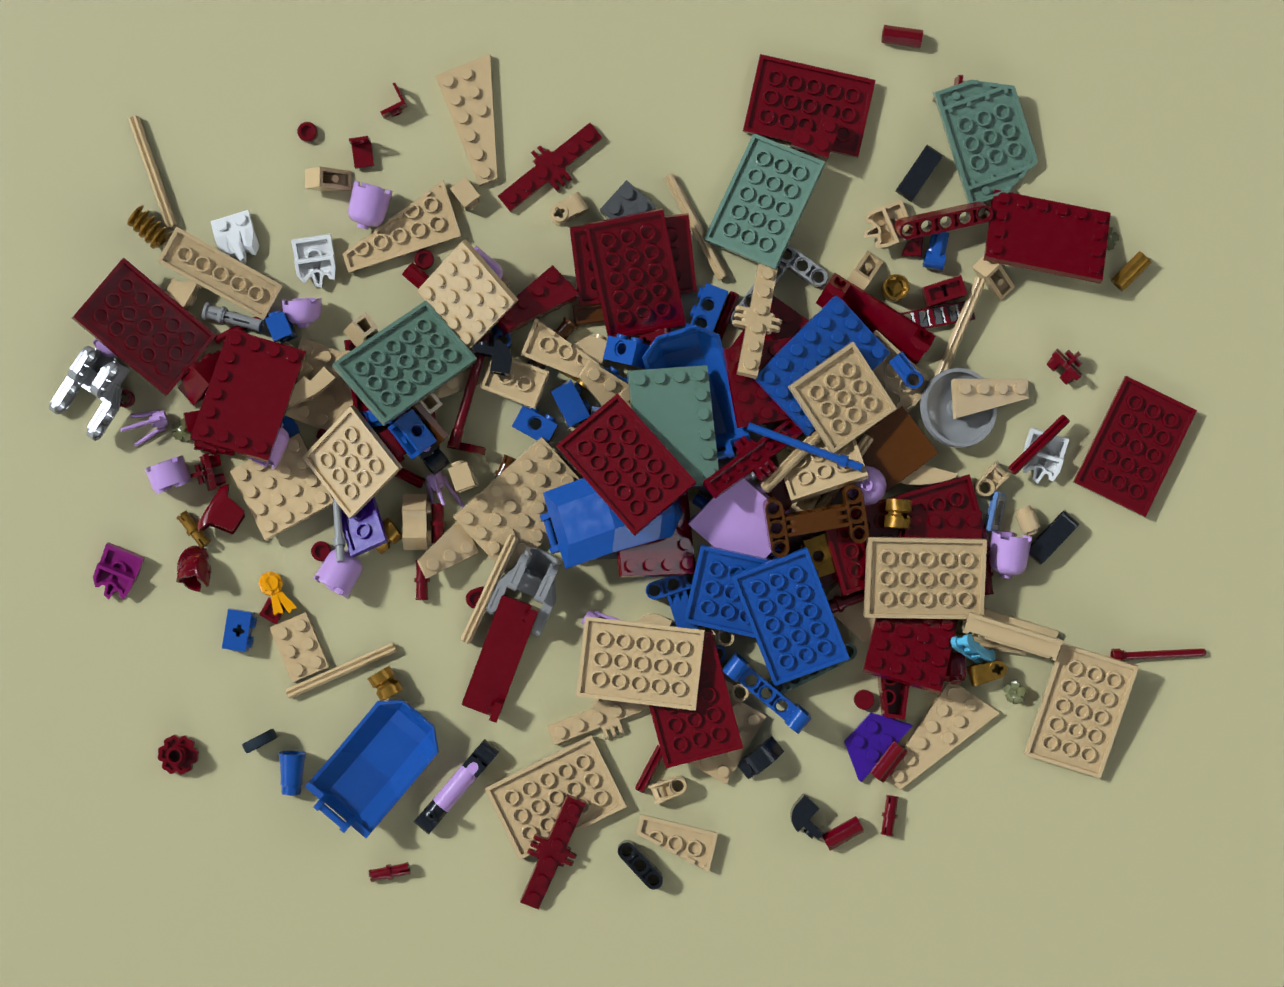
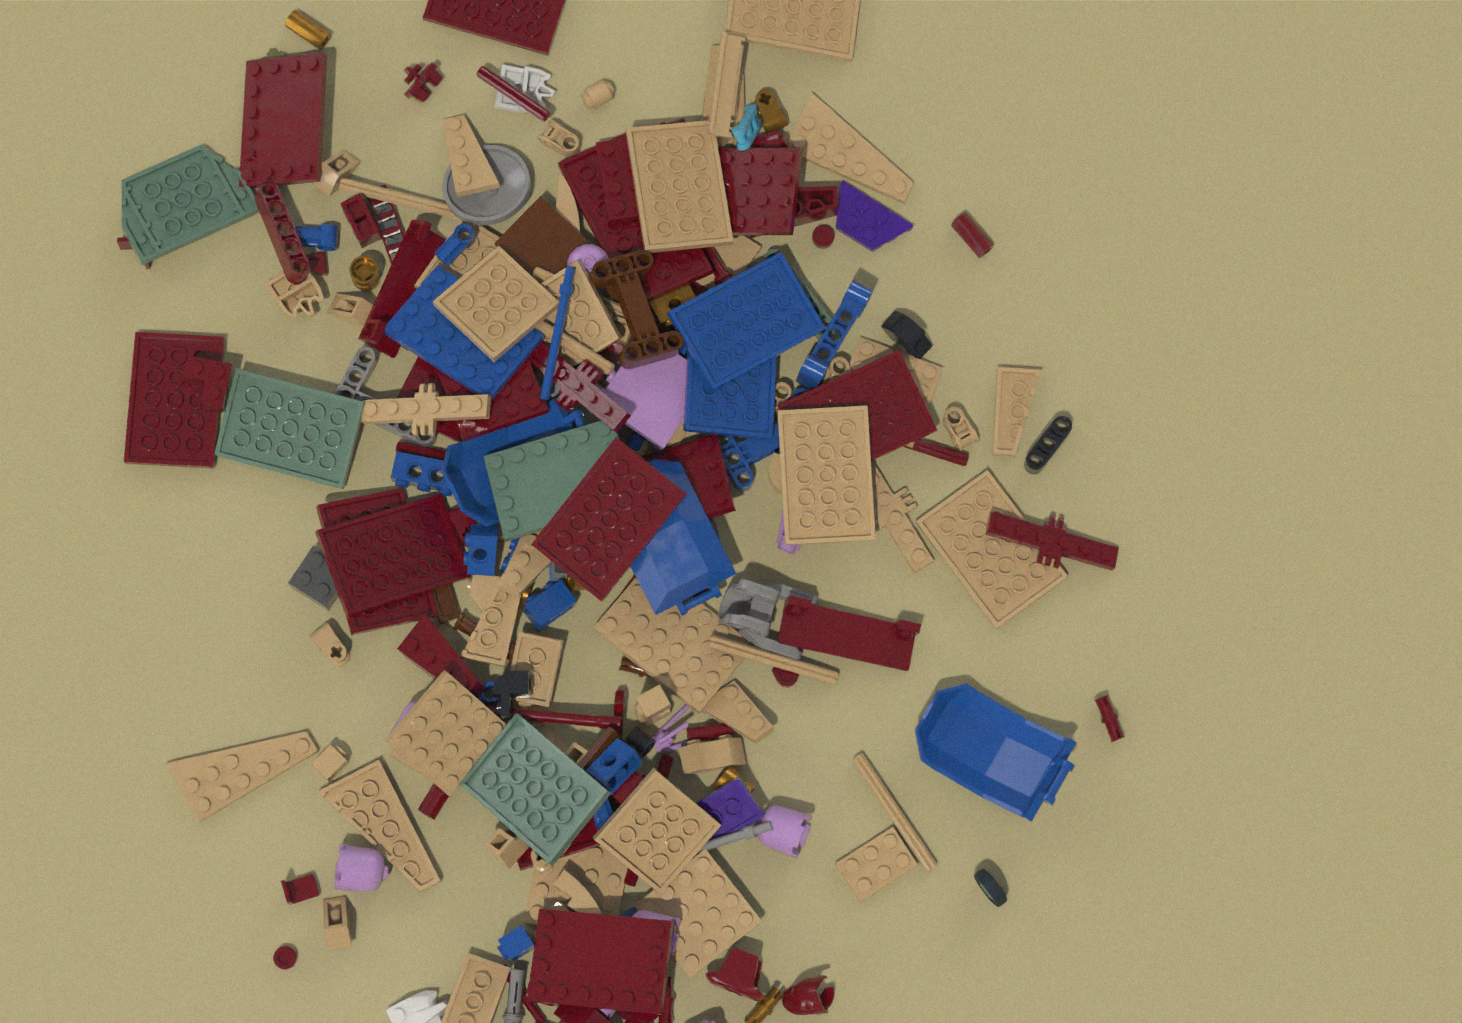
camera: 105 degrees left, 10 degrees down
(178, 754) = (1023, 980): dark red plant -> none
(208, 463) = (697, 1003): dark red hips -> none
(234, 620) = (859, 942): blue brick -> none
(267, 612) = (841, 901): dark red tile -> none
(271, 585) = (811, 907): light orange piece -> none
(291, 771) = (1018, 846): blue plant -> none
(302, 310) = (492, 923): lavender cylinder -> none
(314, 258) = (430, 922): white plate -> none
(320, 550) = (763, 858): dark red tile -> none
(385, 683) = (900, 758): pearl gold wheel -> none
(395, 109) = (244, 857): dark red bracket -> none
(421, 584) = (779, 737): dark red pin -> none
(424, 259) = (411, 798): dark red tile -> none
(456, 786) = (977, 646): piece -> none
(523, 424) = (579, 654): blue brick -> none
(550, 167) = (285, 674): dark red hinge -> none
(695, 226) = (311, 514): tan axle -> none
(801, 814) = (962, 282): black brick -> none
(889, 761) = (885, 198): dark red axle -> none
(889, 815) = (944, 189): dark red pin -> none
(898, 513) = (614, 225): pearl gold wheel -> none
(902, 36) = (81, 311): dark red axle -> none
(919, 173) = (232, 269): black beam -> none
(995, 512) = (594, 131): medium blue slope -> none
(1009, 553) = (636, 106): lavender cylinder -> none
(1015, 693) = (786, 79): olive plant -> none
(1052, 537) = (611, 66): black beam -> none

